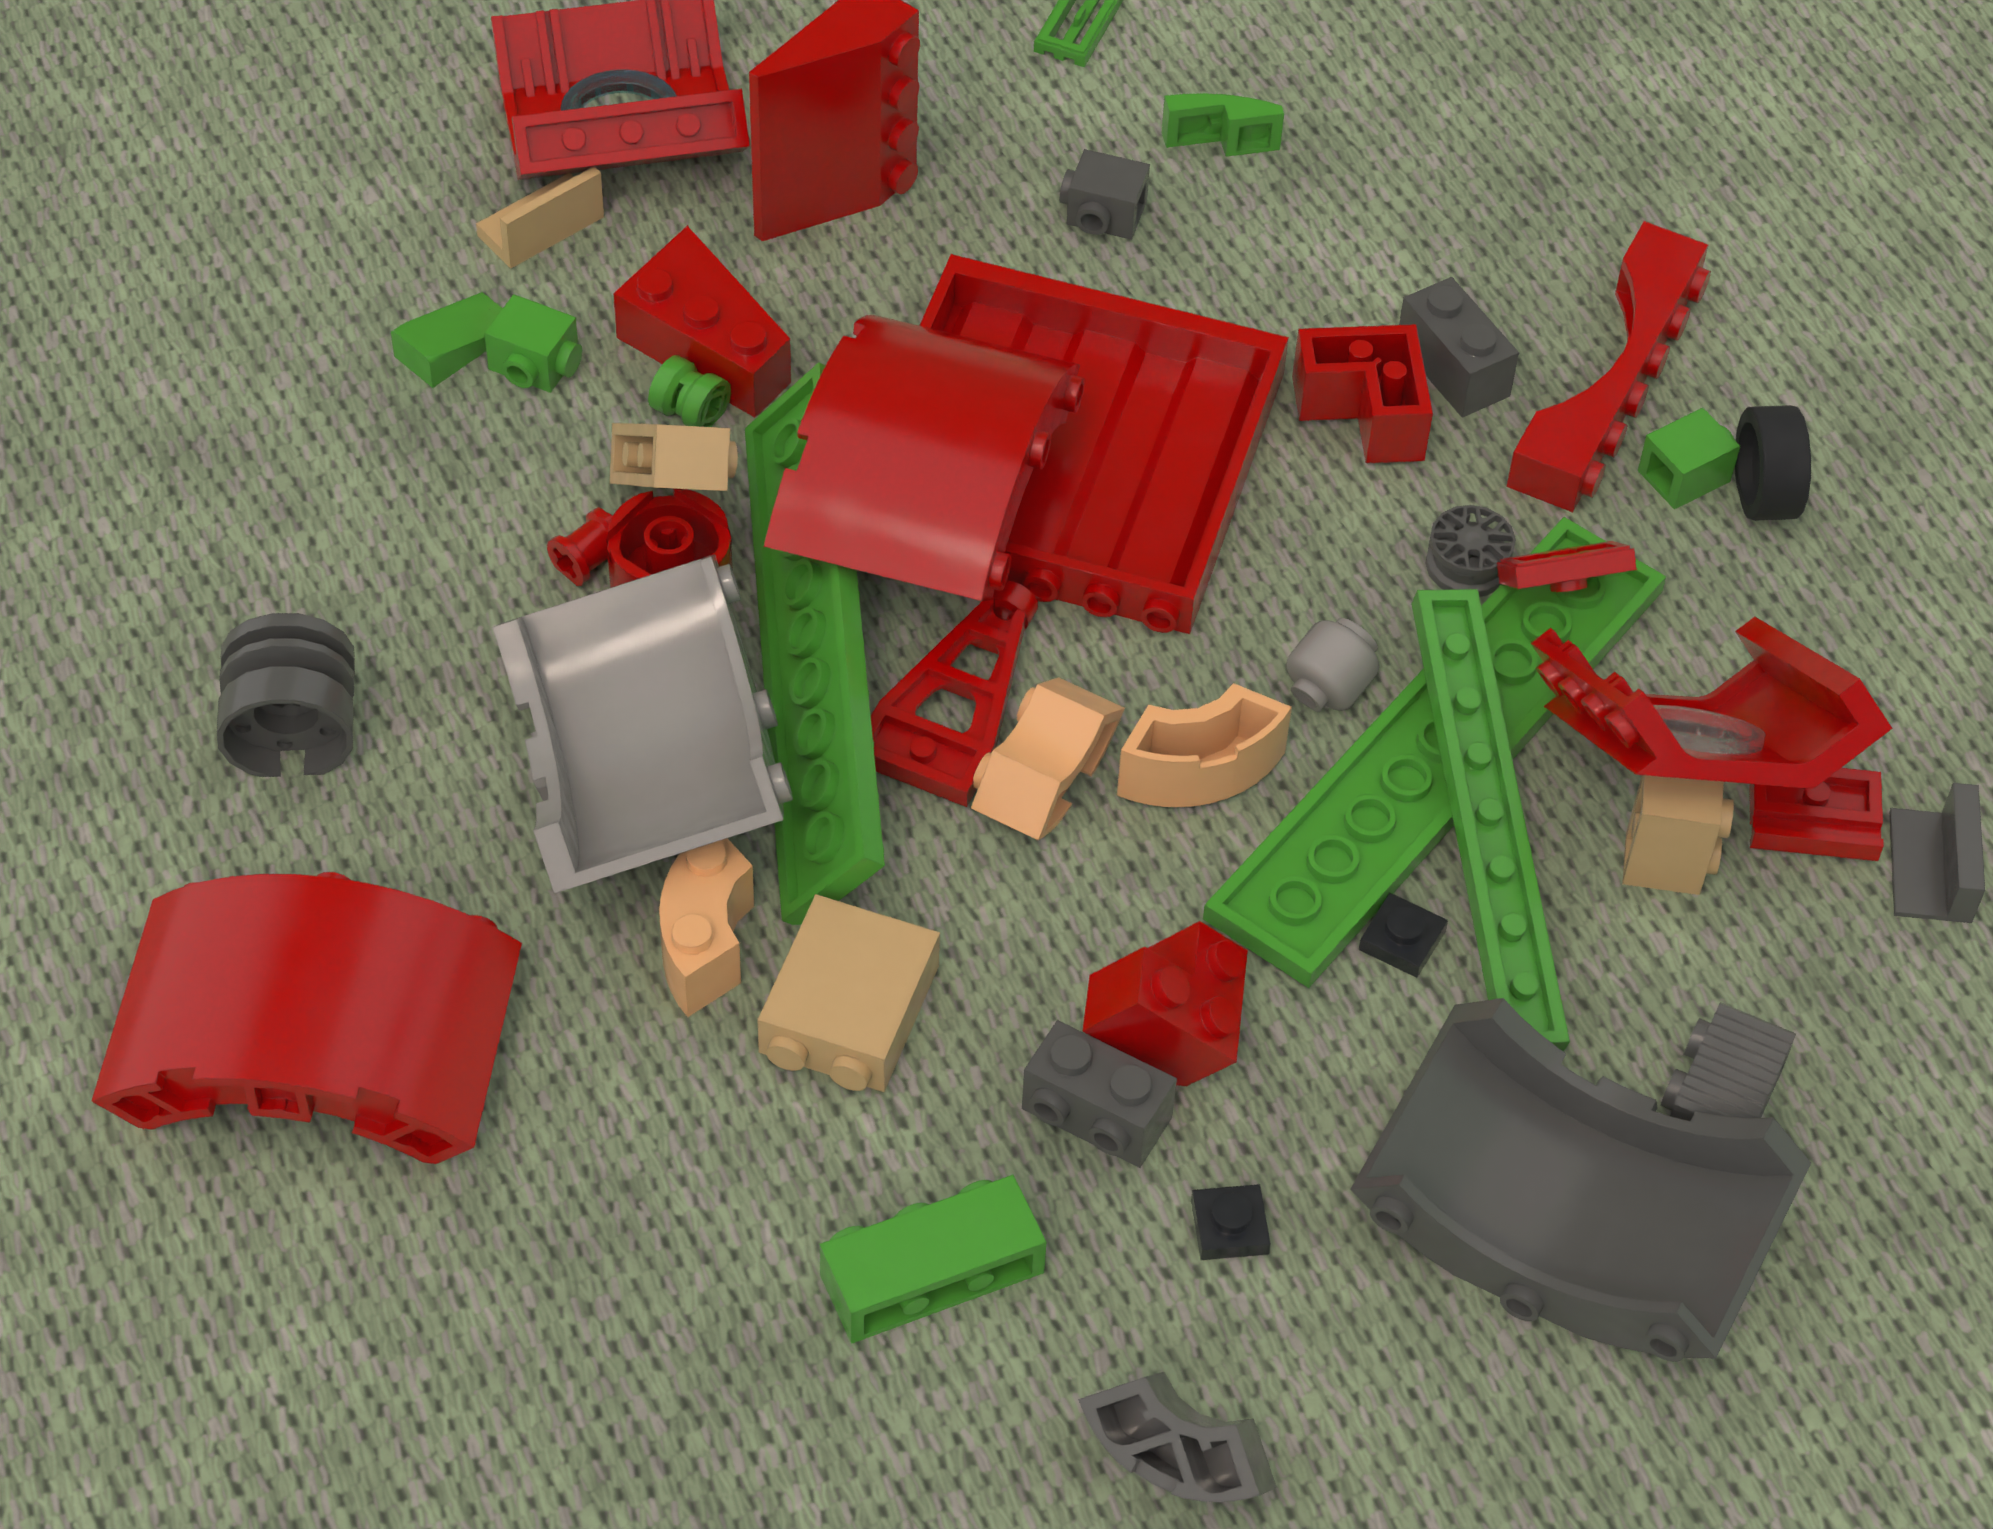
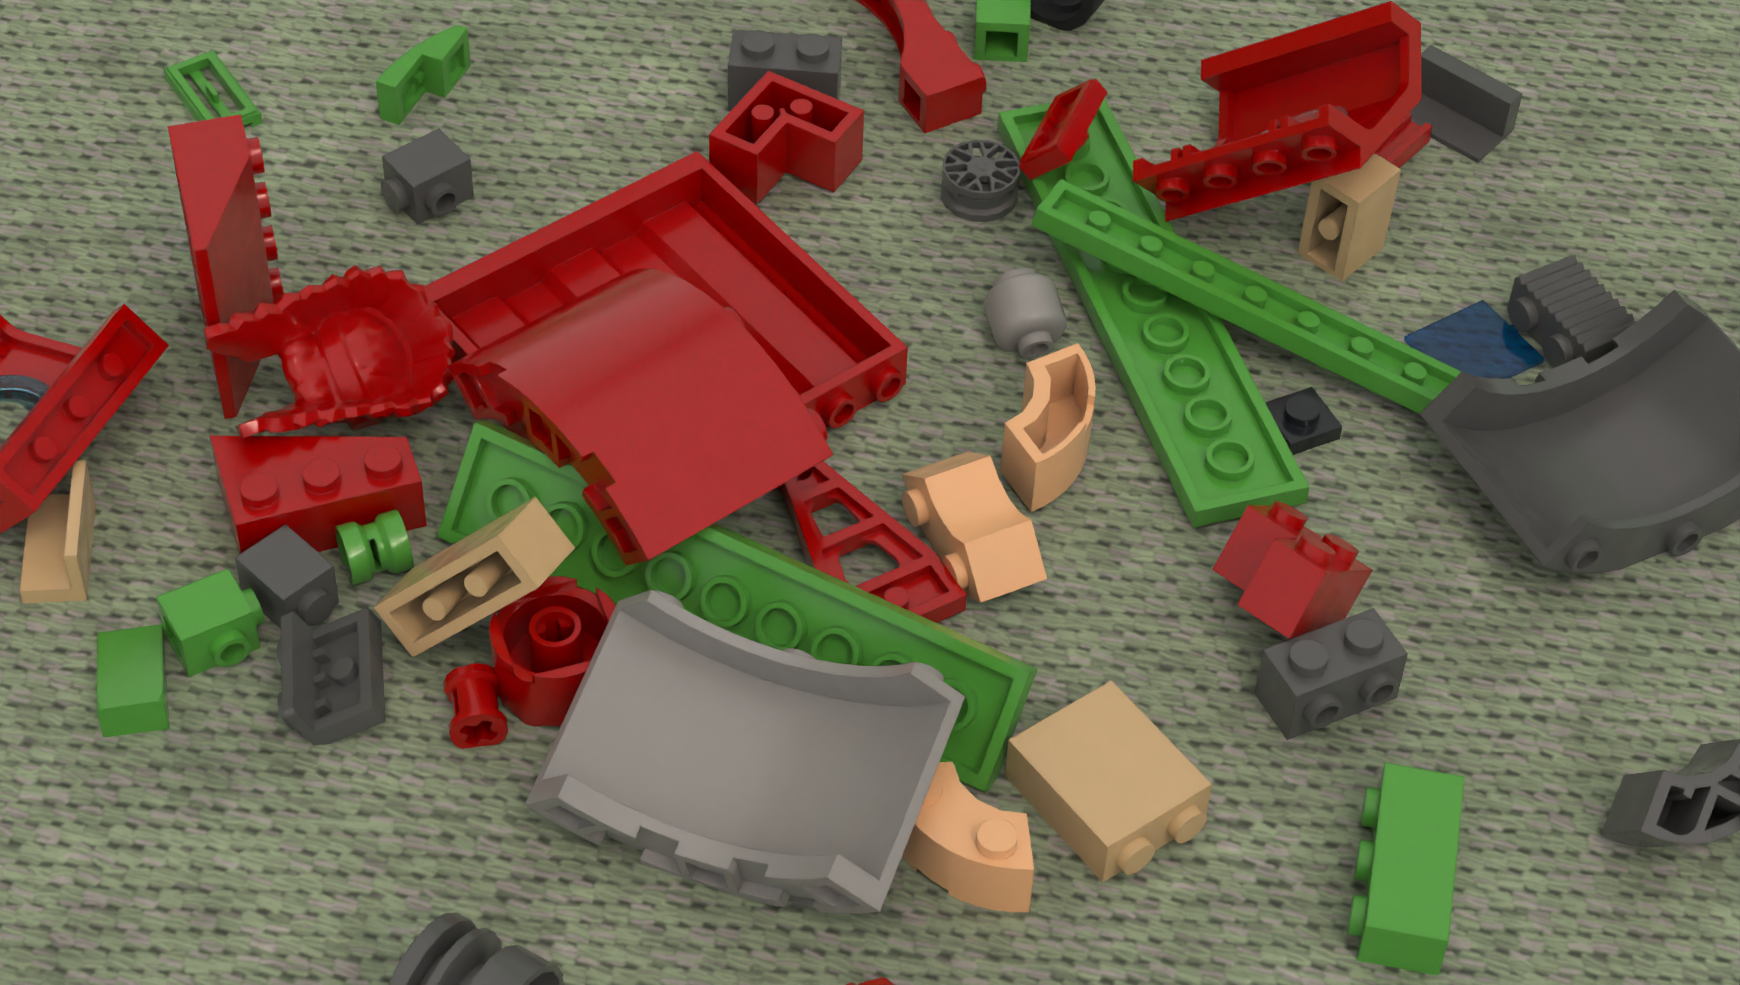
camera: 55 degrees left, 5 degrees down
(540, 441) = (331, 676): none -> dark grey bracket
(611, 363) = (289, 577): none -> dark grey brick
(839, 250) = (346, 349): none -> red piece
(1230, 1222) = (1491, 668): black plate -> none
(1630, 1027) = (1476, 343): none -> piece

